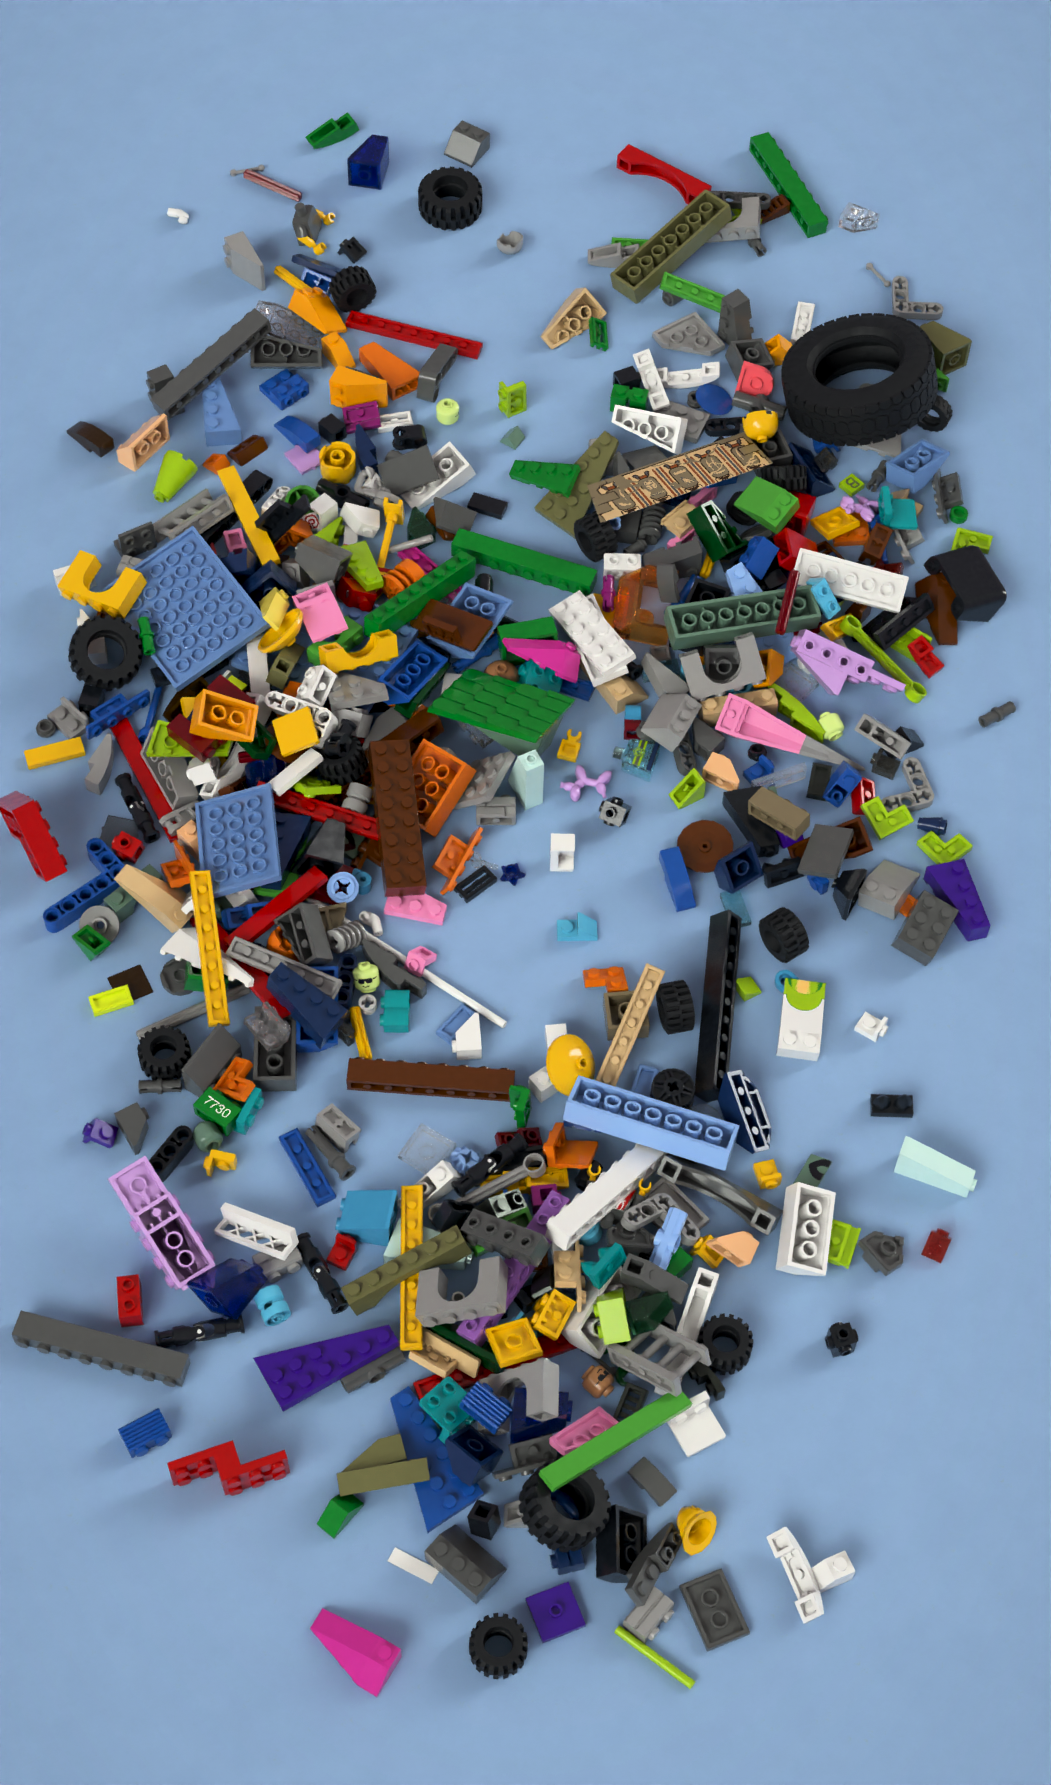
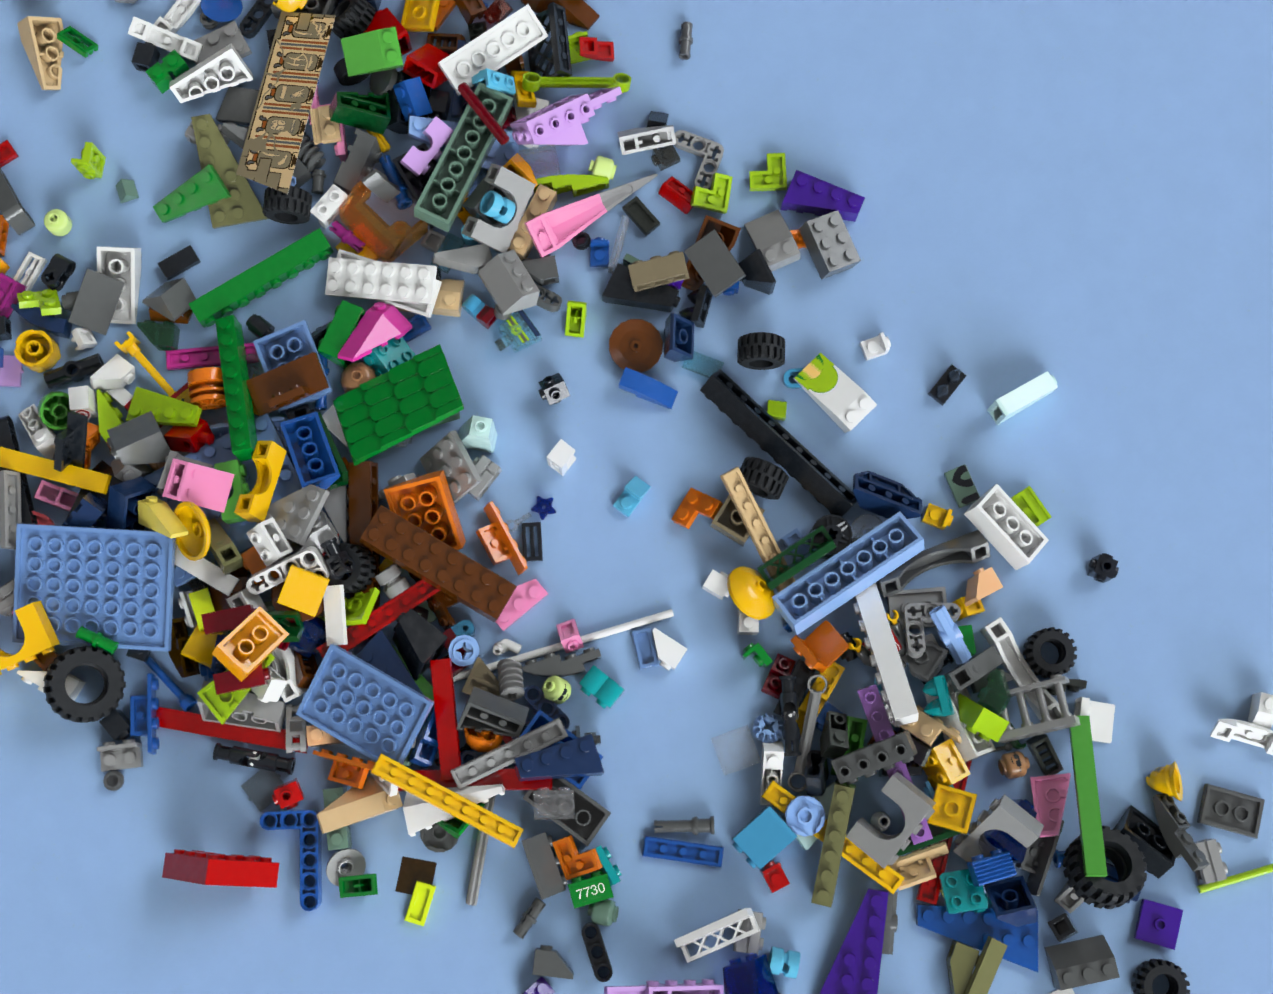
camera: 55 degrees left, 20 degrees up
(54, 753) = (144, 789): yellow tile -> none
(100, 766) = (189, 760): light grey slope -> none
(163, 1039) = (487, 896): black tyre -> none
(221, 1159) = (632, 914): yellow bracket -> none
(327, 1285) = (793, 907): black piece -> none
(337, 1127) = (669, 805): light grey hinge -> none
(360, 1033) = (599, 728): yellow axle -> none
(372, 1007) = (570, 703): white bush -> none
(374, 494) = (104, 341): light grey animal -> none
(377, 441) = (45, 299): none -> lime plate
(409, 544) = (171, 354): light grey bar -> none
(411, 1227) = (805, 815): none -> light blue tile
(429, 1079) = (683, 701): reddish brown brick -> none
(540, 1193) = (849, 688): magenta brick -> none
(570, 748) = (466, 377): yellow plate -> none
(582, 780) = (504, 389): lavender piece -> none
(628, 1077) = (799, 564): none -> dark green fence
(652, 1480) = (1115, 782): dark grey slope -> none
(709, 588) = (417, 160): none -> lavender arch
(720, 772) = (579, 281): light nougat slope -> none
(721, 656) = (498, 207): none -> medium azure wheel
(841, 784) = (660, 201): blue slope -> none
(882, 1252) = (1057, 484): dark grey plate -> none
(936, 824) = (746, 164): dark blue cone -> none
(937, 1245) = (1078, 442): clear red bracket -> none

